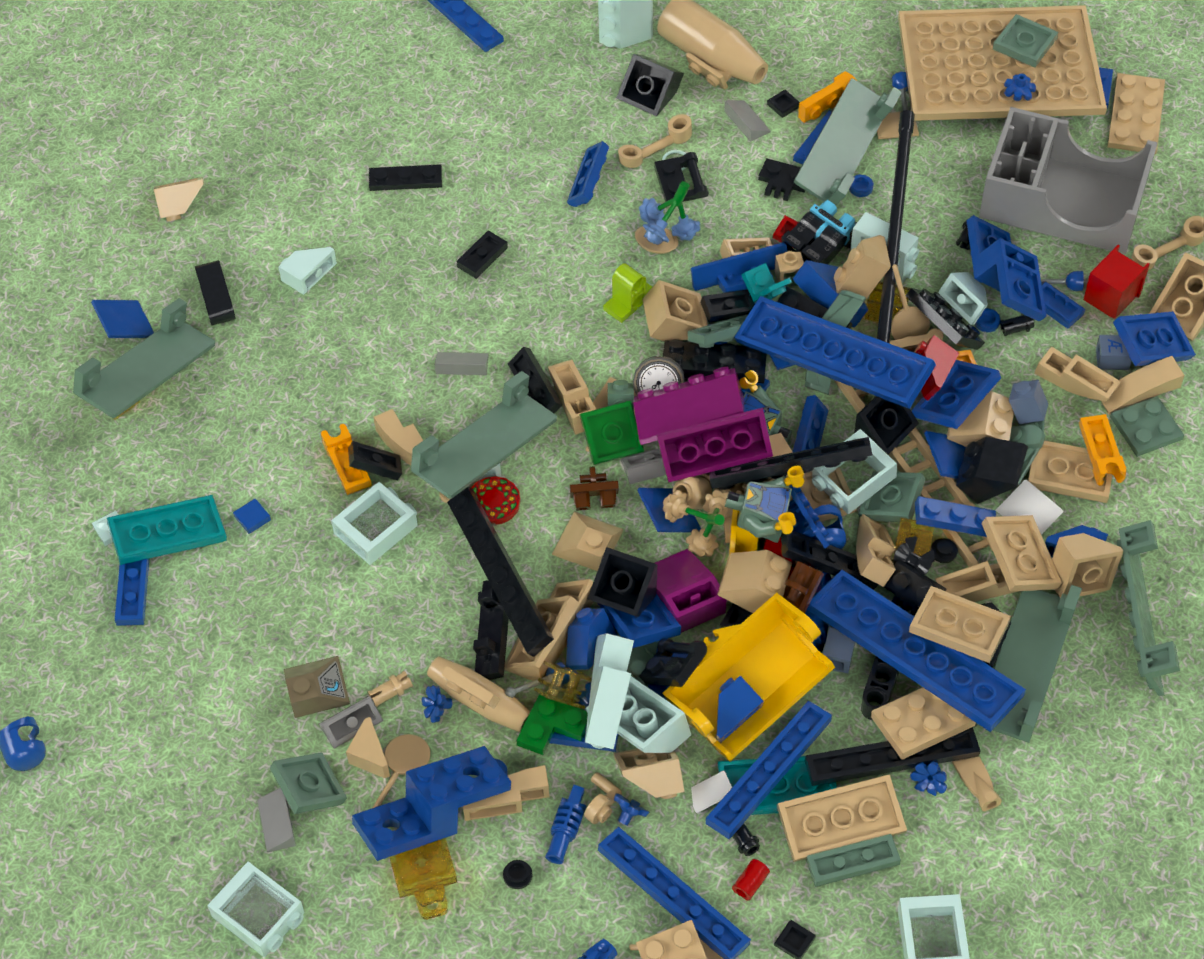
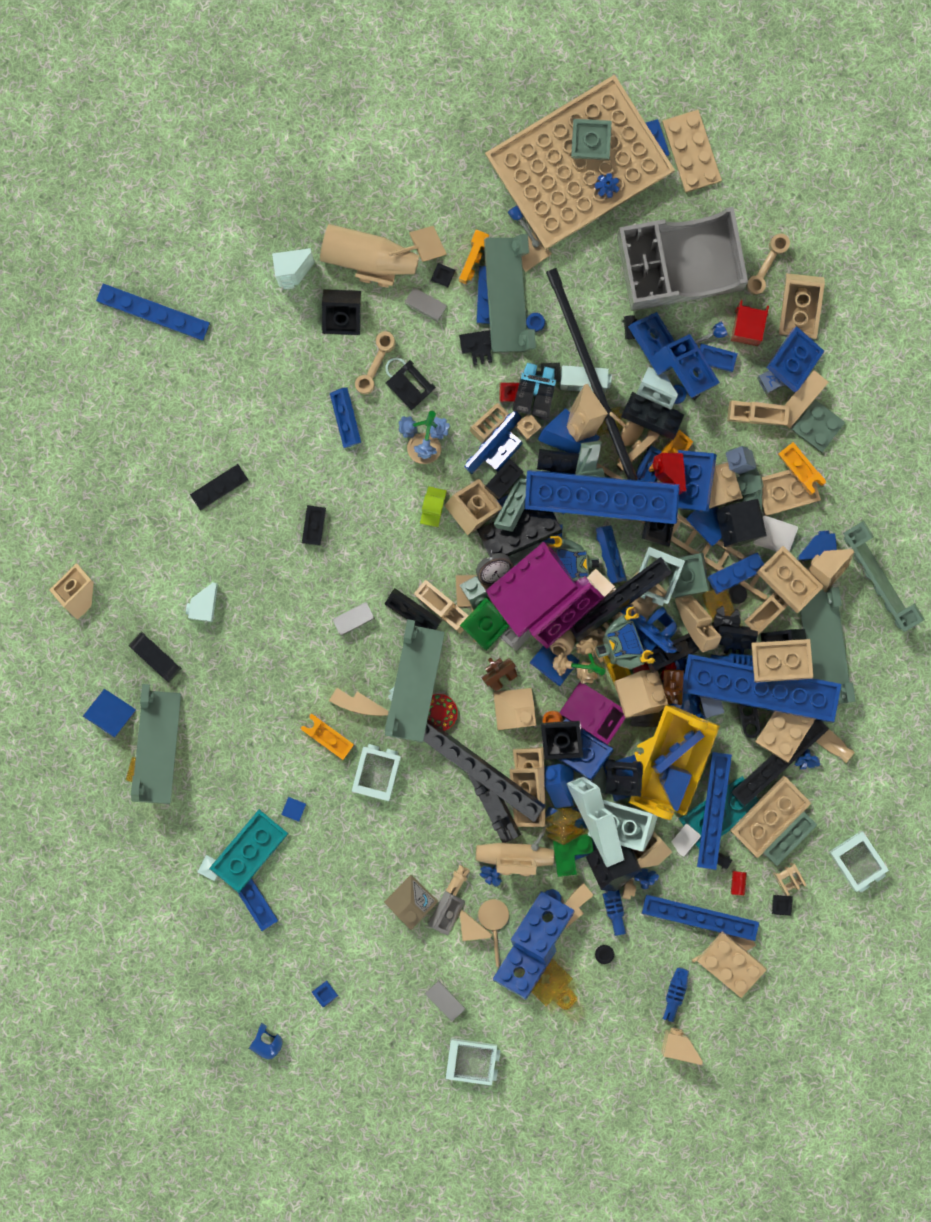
camera: 30 degrees left, 30 degrees up
(136, 734) = (325, 993): none -> blue tile
(308, 783) = (451, 970): sand green plate -> none
(374, 460) = (349, 730): black plate -> none
(594, 768) = (616, 875): none -> black slope
(761, 283) = (523, 457): teal bracket -> none
(762, 663) = (677, 750): none -> blue plate
(781, 63) = (427, 244): none -> tan piece
(827, 920) = (794, 882): none -> tan piece

